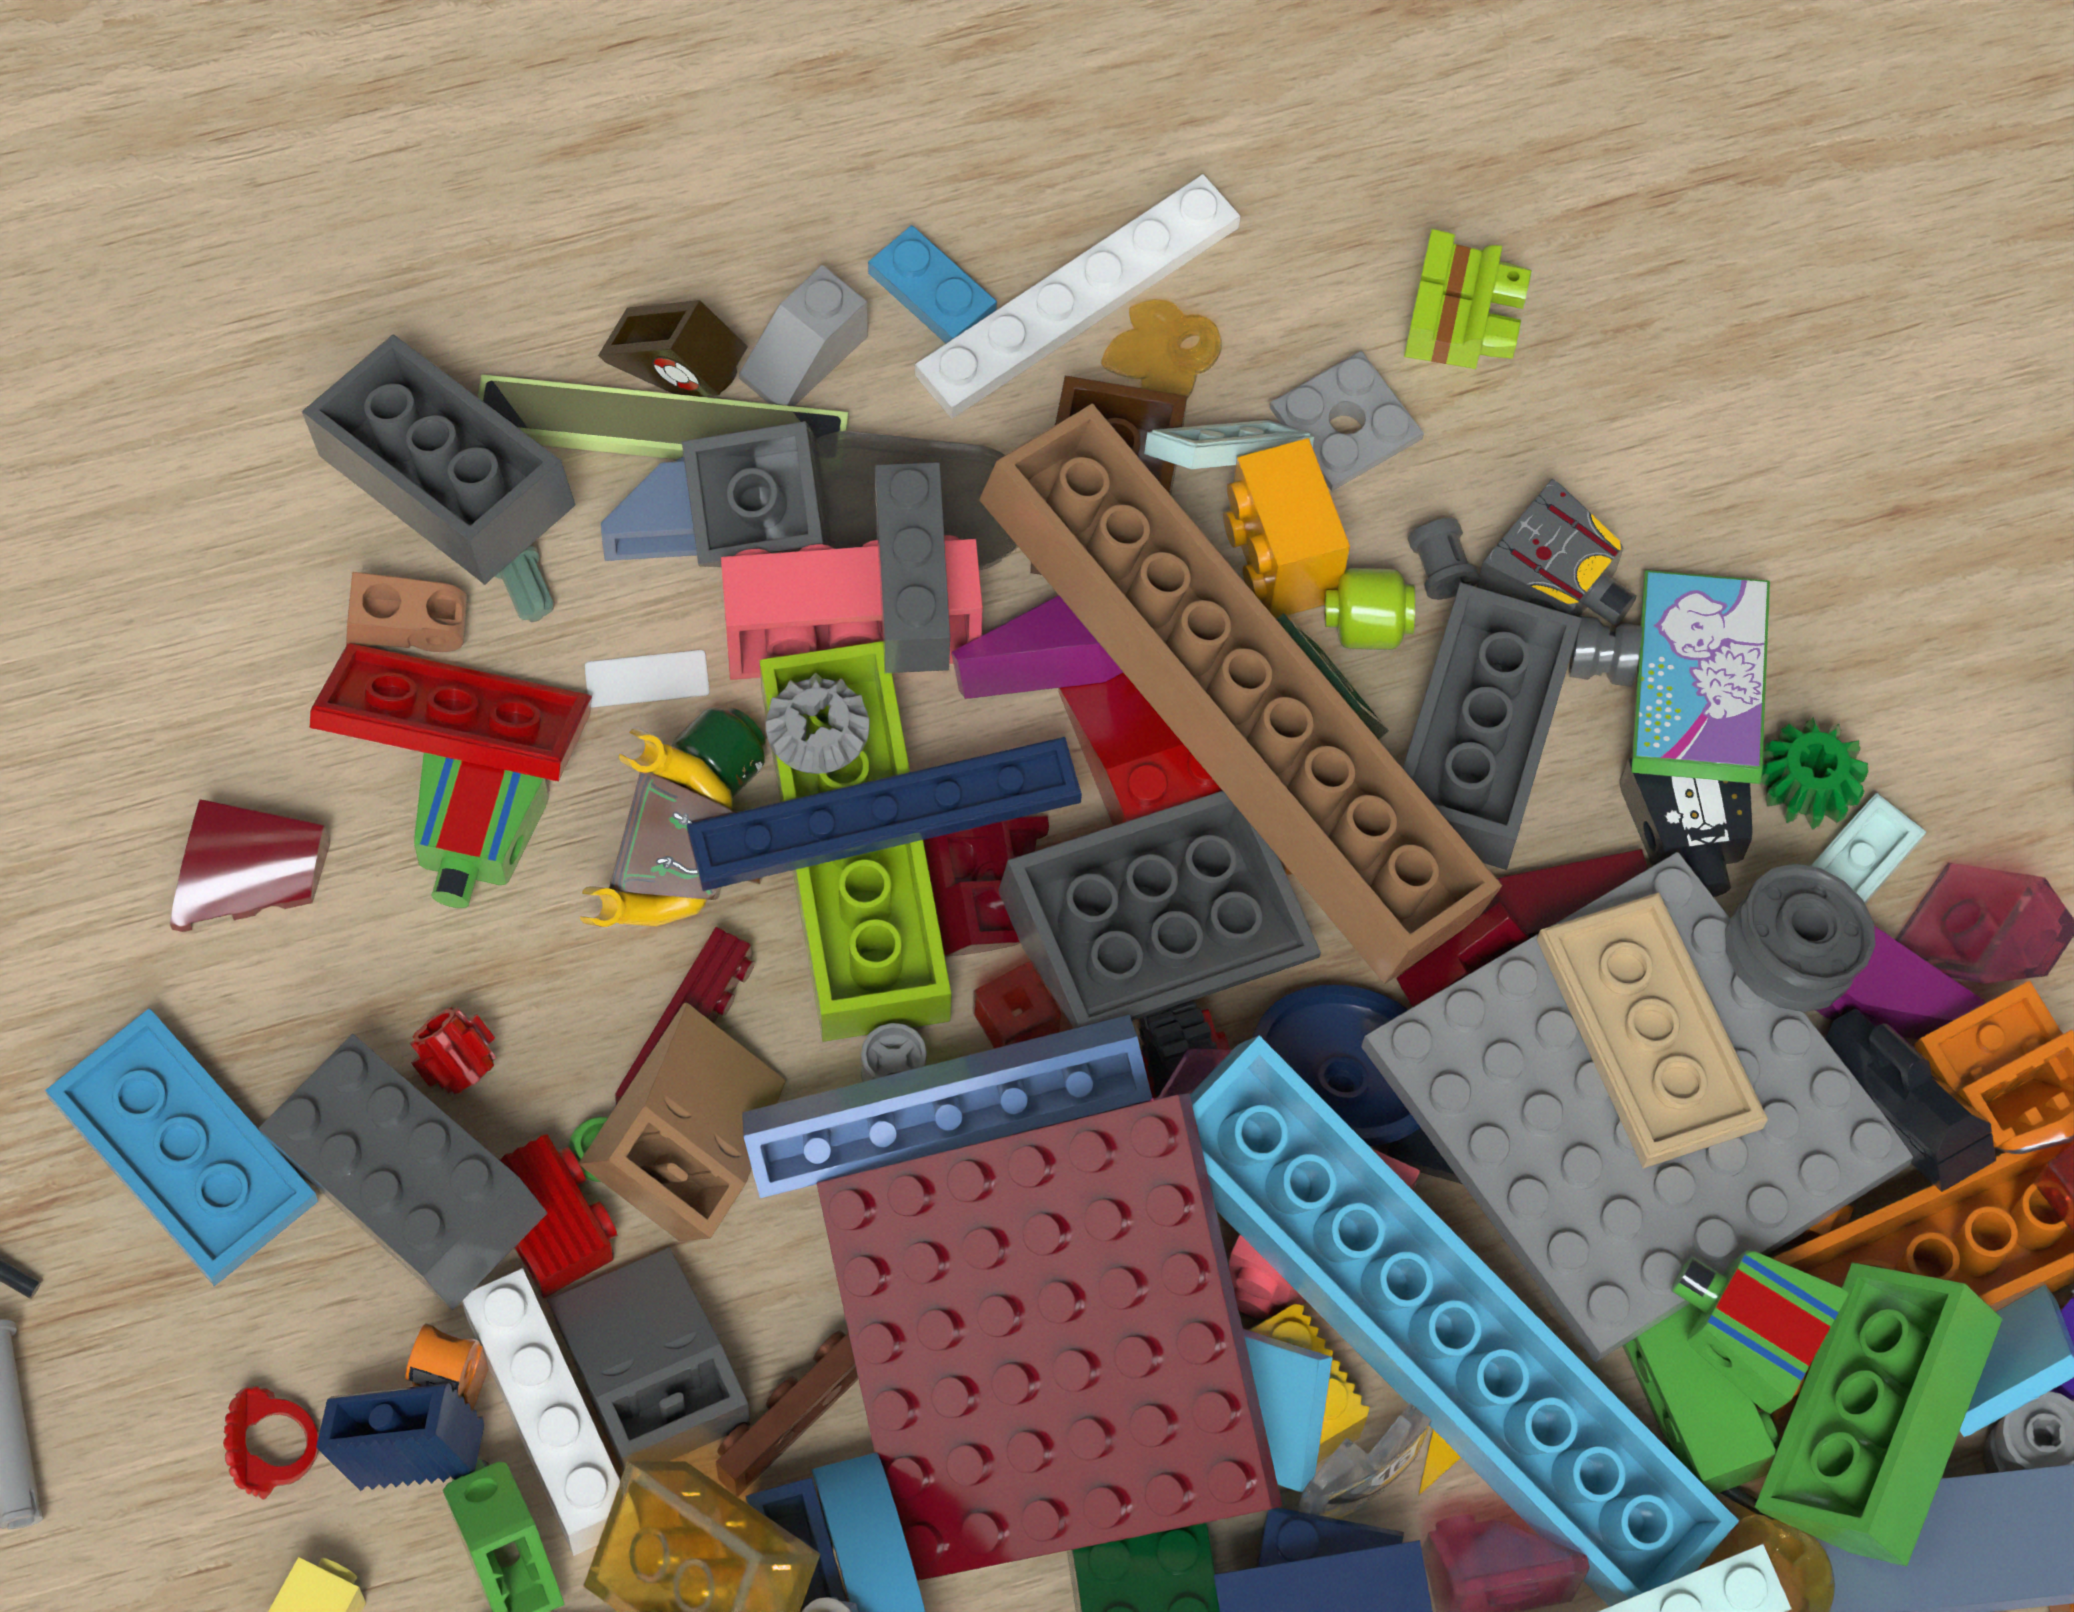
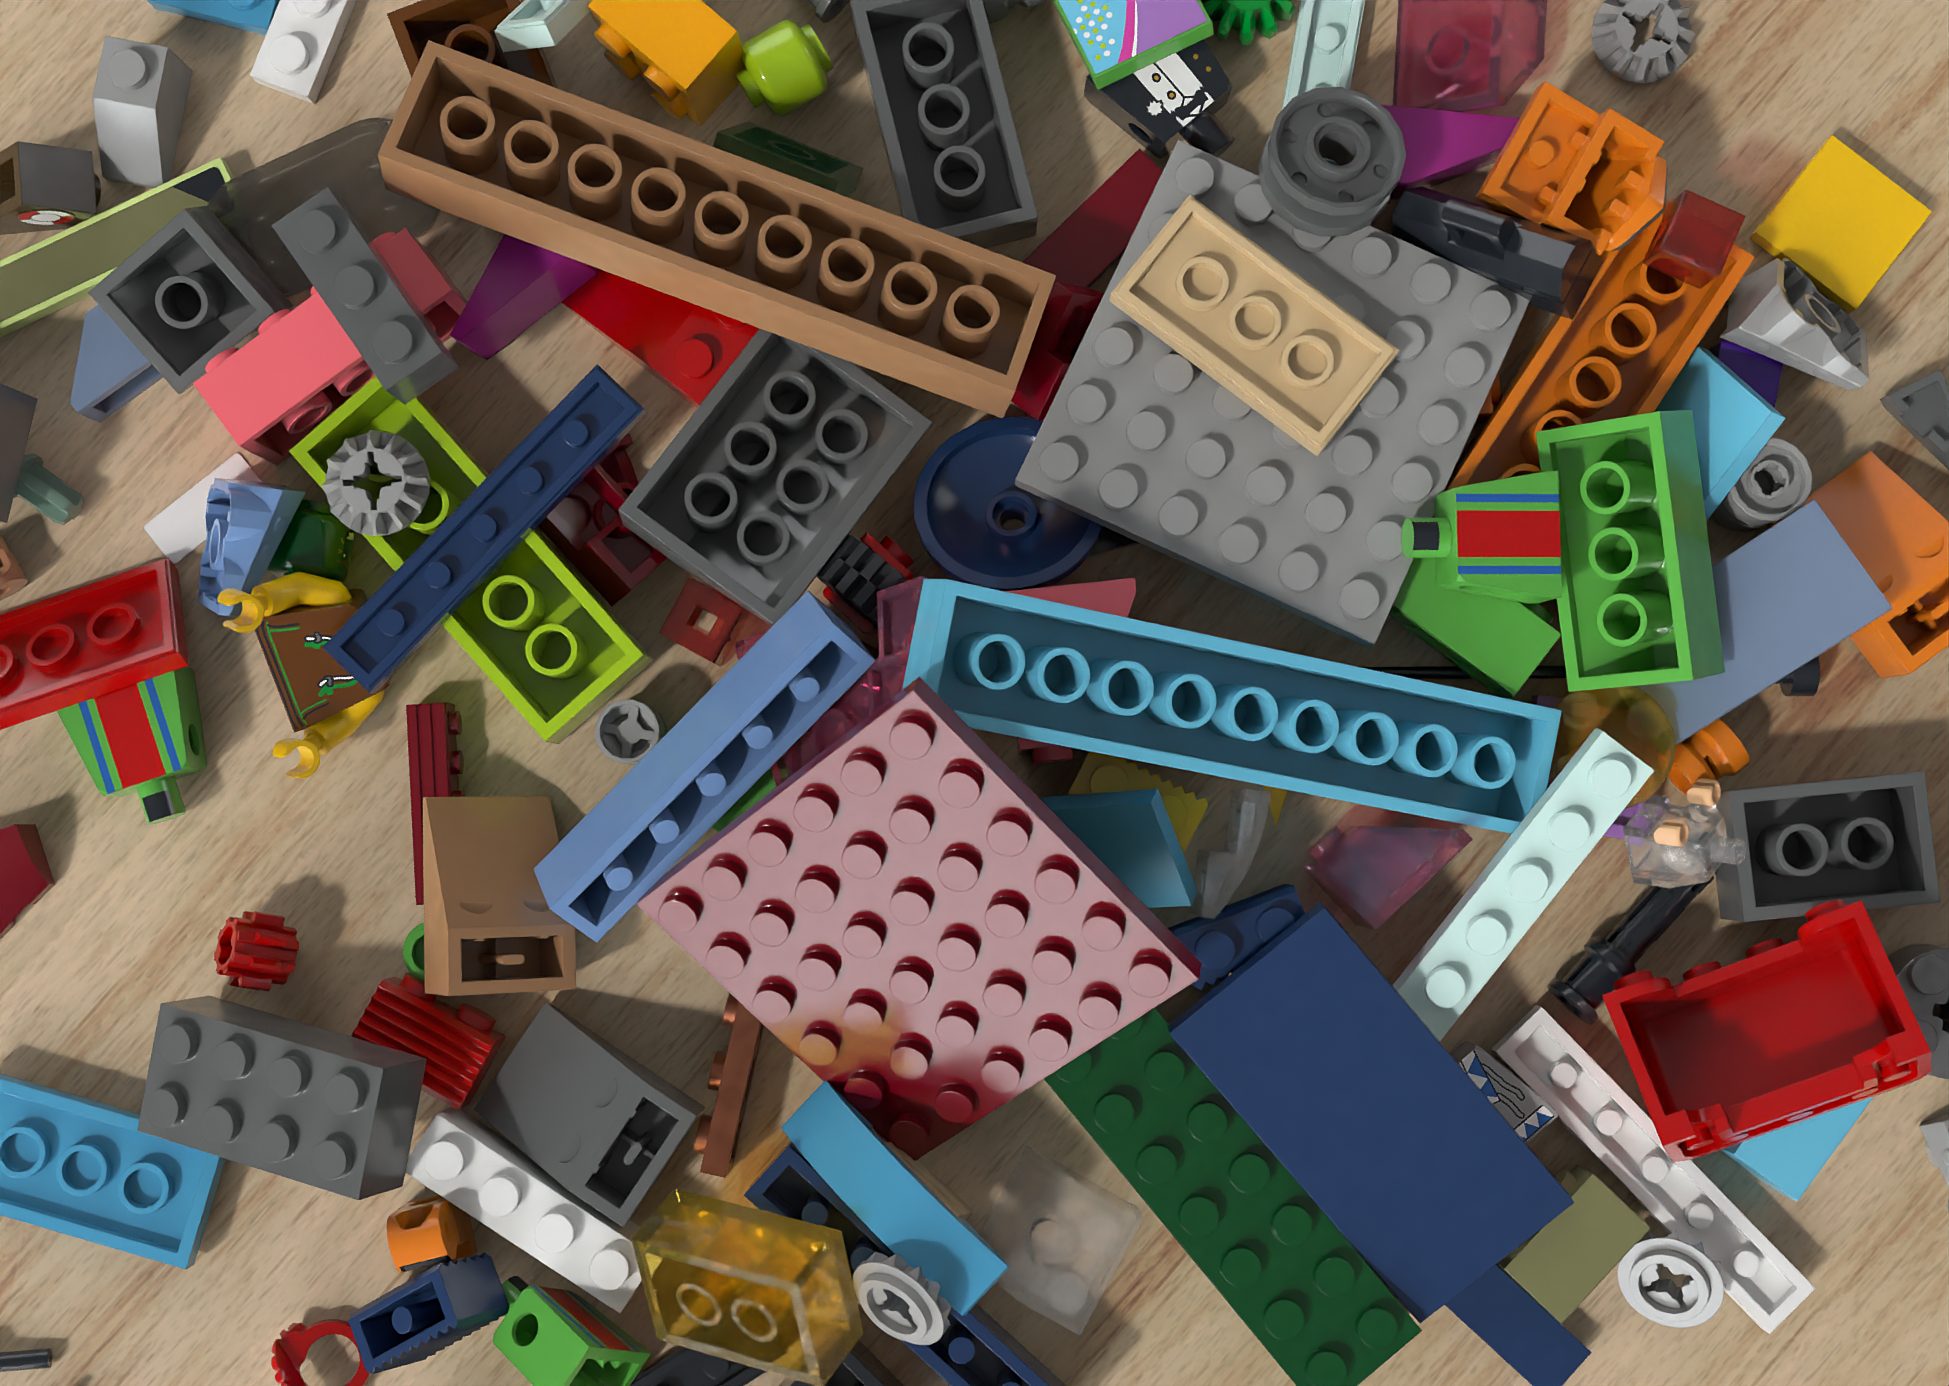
camera: 25 degrees left, 20 degrees up
(671, 705) = (243, 533): none -> medium blue slope

